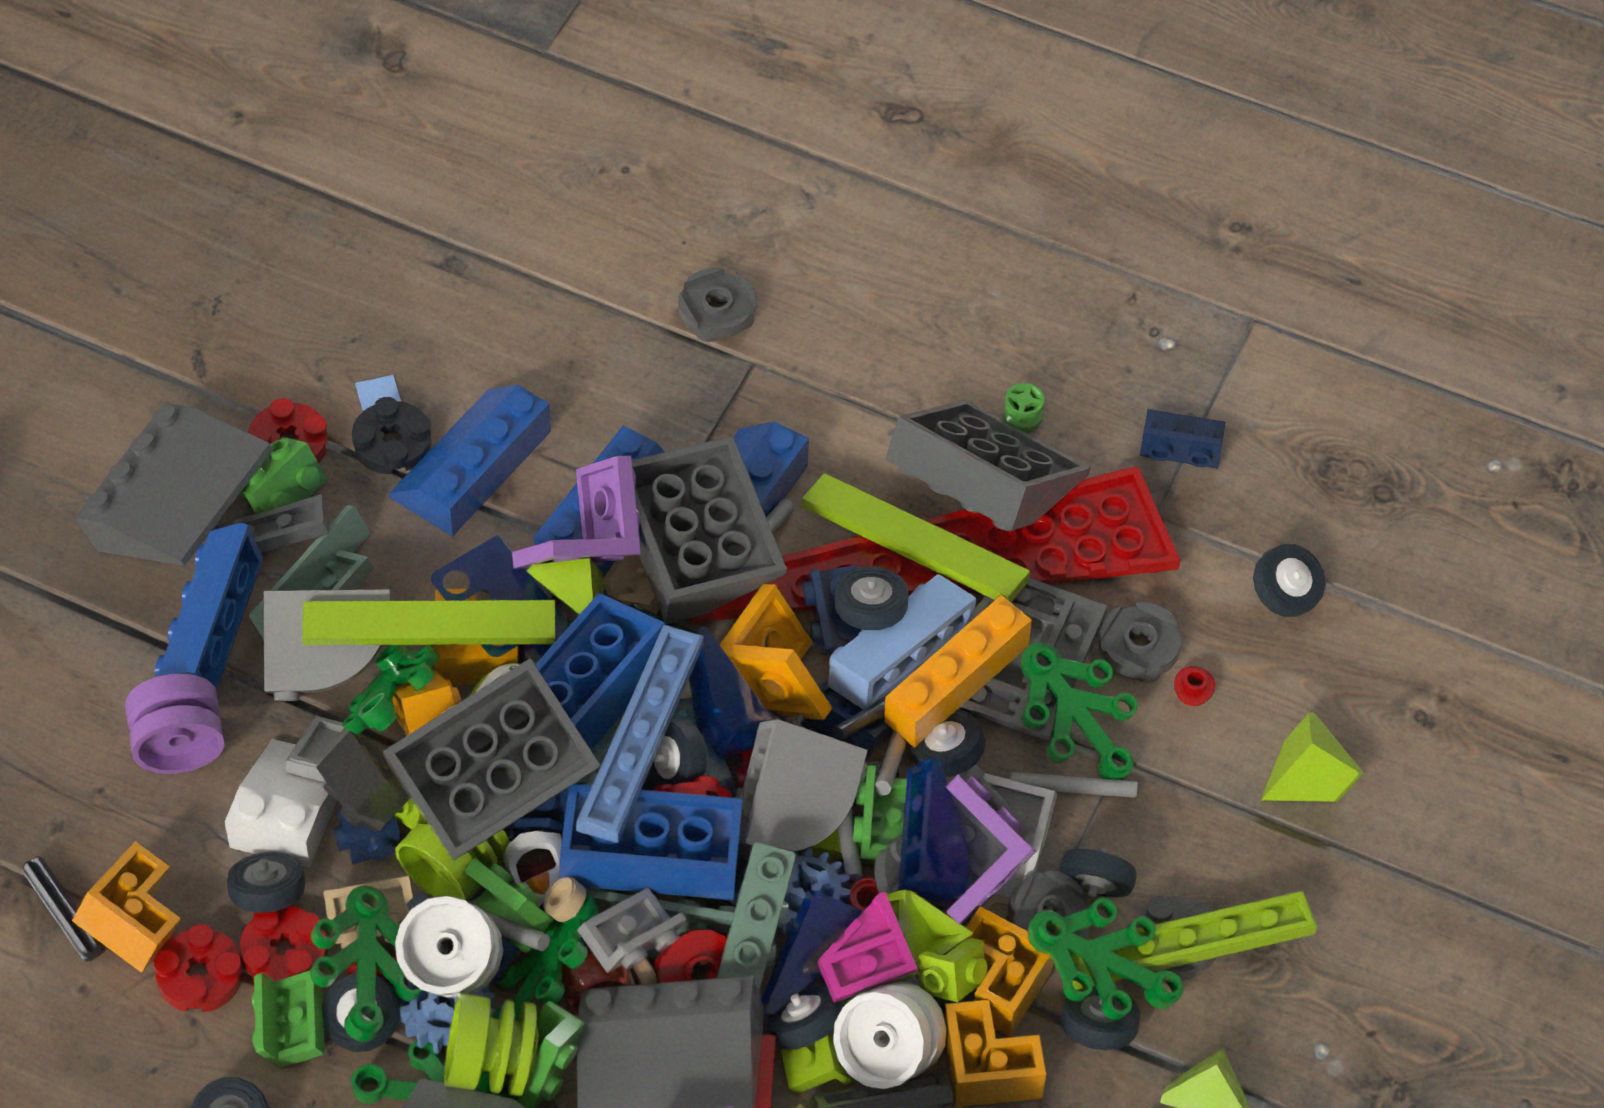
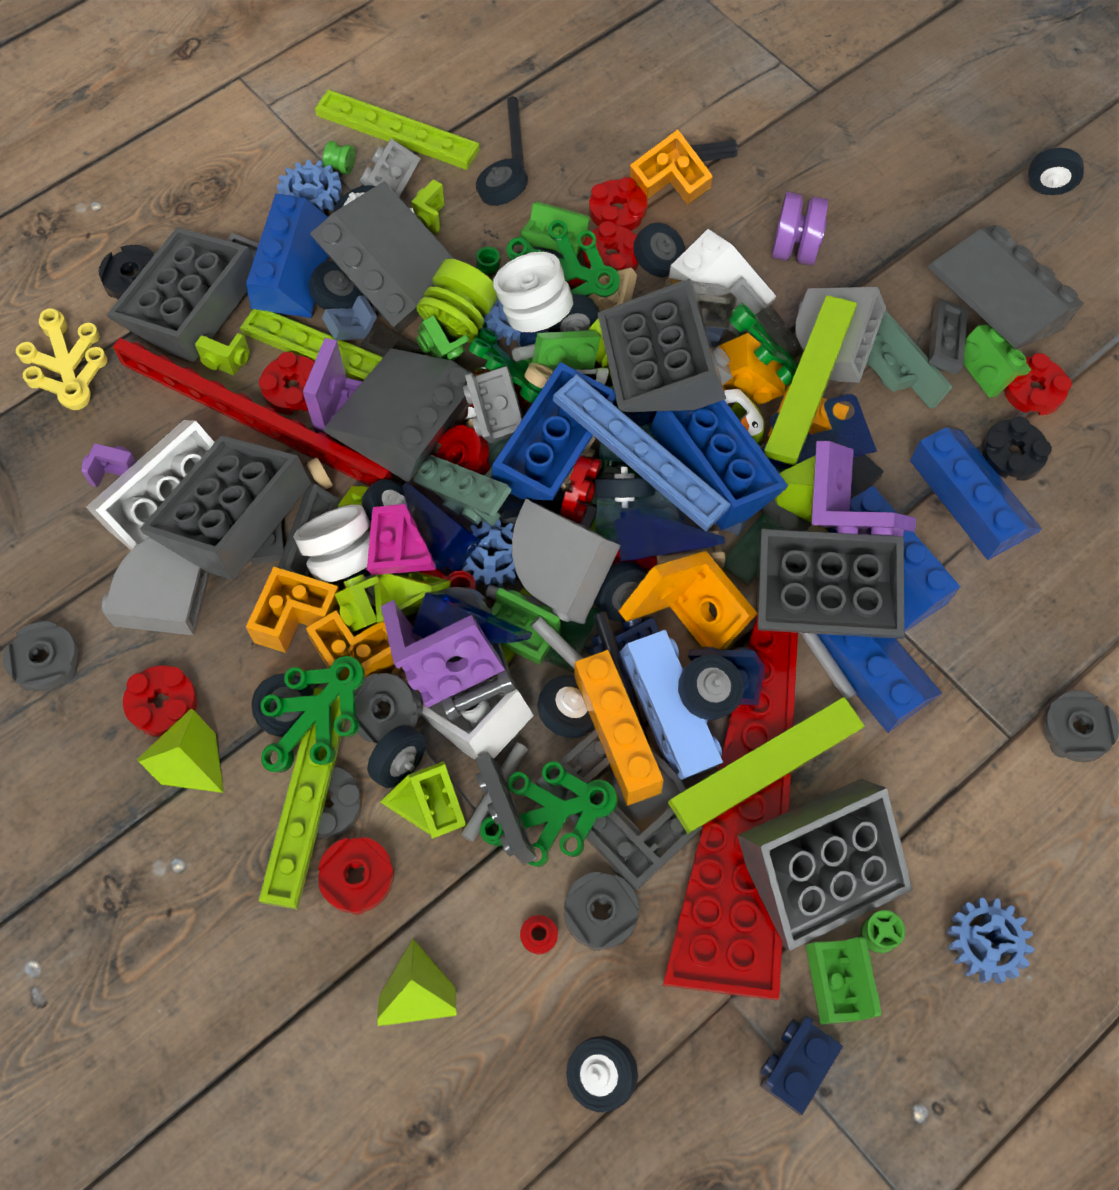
camera: 115 degrees right, 10 degrees up
(213, 605) = (901, 284): blue slope -> none
(339, 707) = (779, 330): none -> clear smoke tile
(371, 390) = (1063, 459): light blue sticker -> none
(983, 322) = (1002, 930): none -> medium blue gear
(1089, 421) = (843, 981): none -> bright green bracket
(1098, 744) = (504, 810): none -> dark grey plate
(1121, 831) = (427, 801): none -> lime slope
(1230, 846) = (354, 853): none -> red plate

